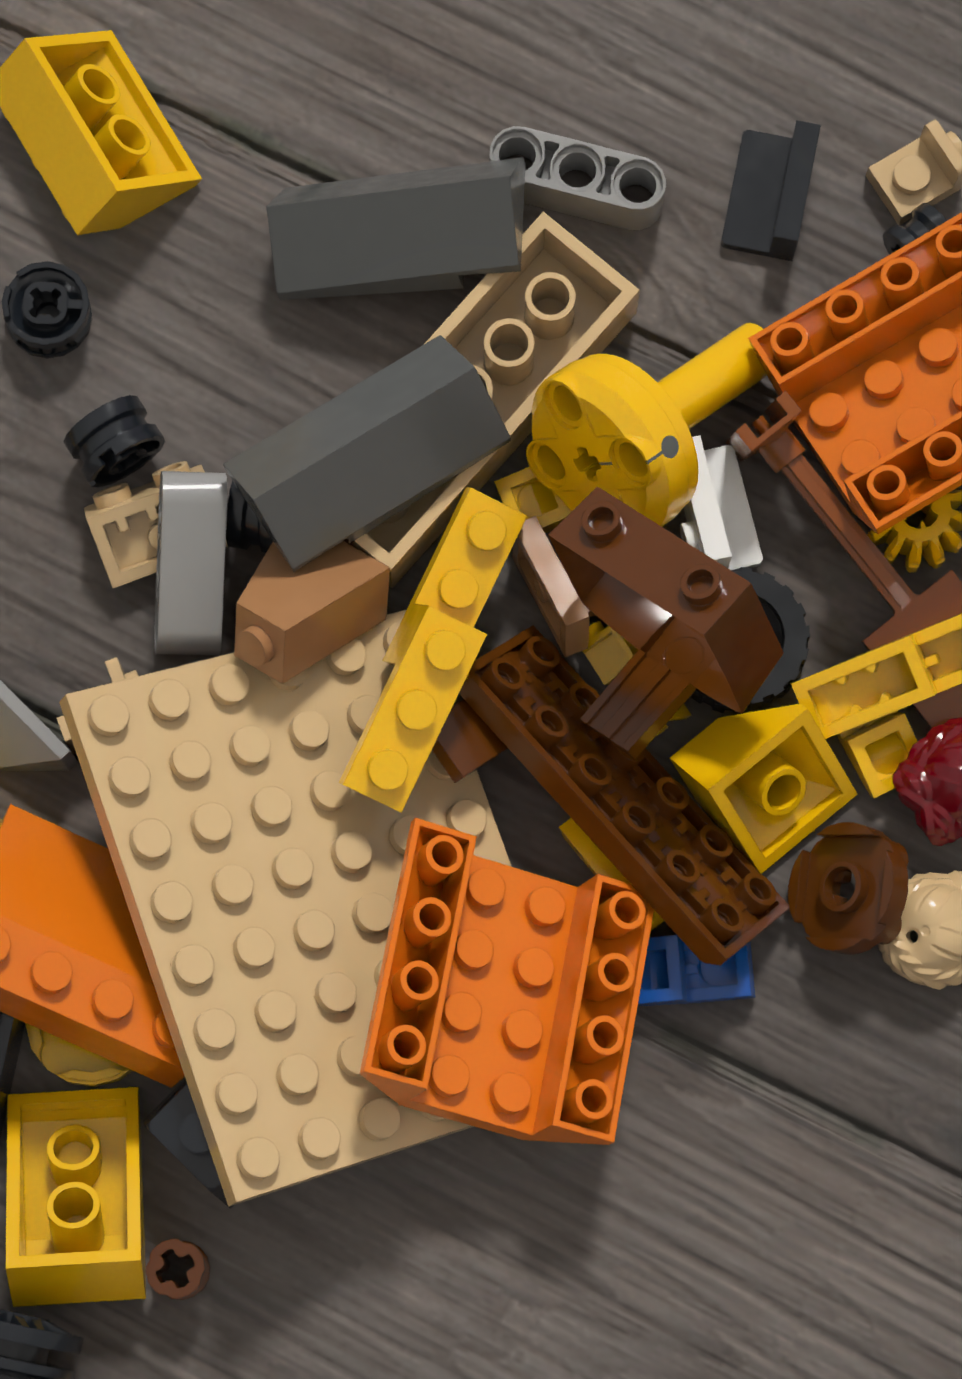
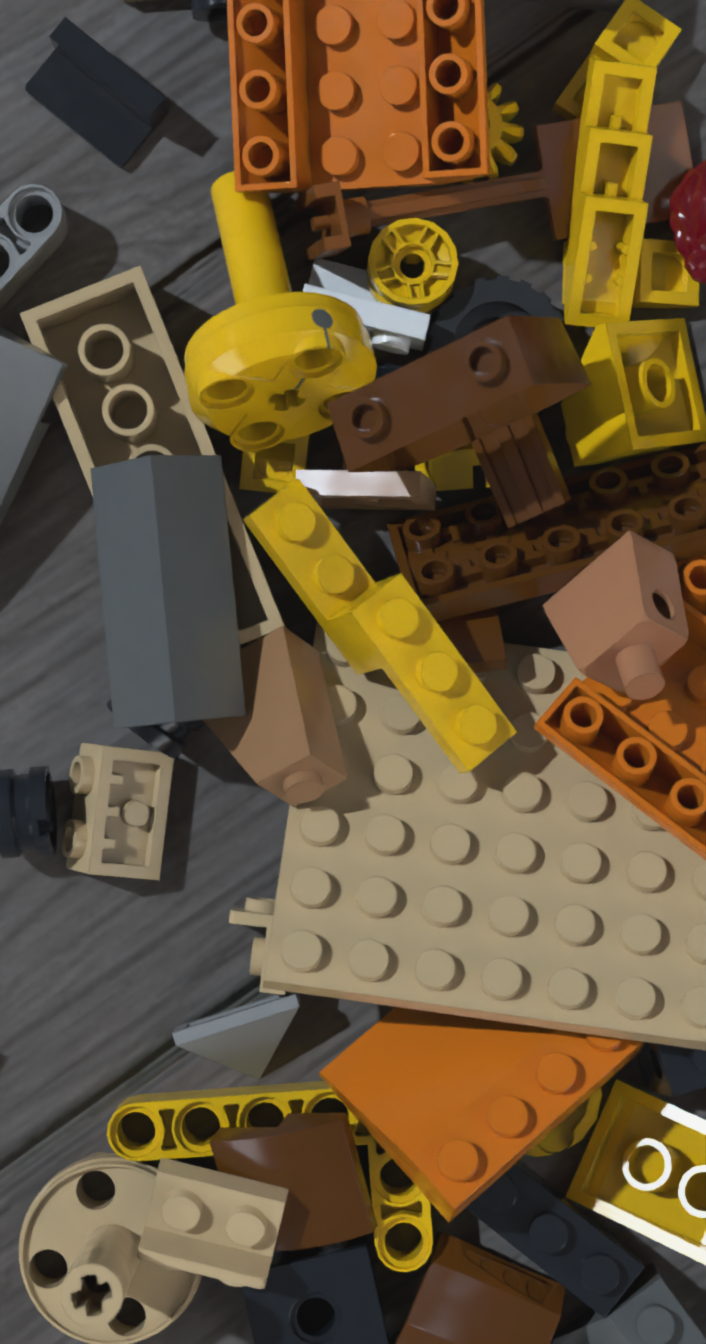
camera: 65 degrees left, 10 degrees up
(190, 563) = (177, 800): light grey beam -> none
(554, 852) = (623, 616): none -> nougat torso
(791, 521) = (412, 242): none -> yellow wheel

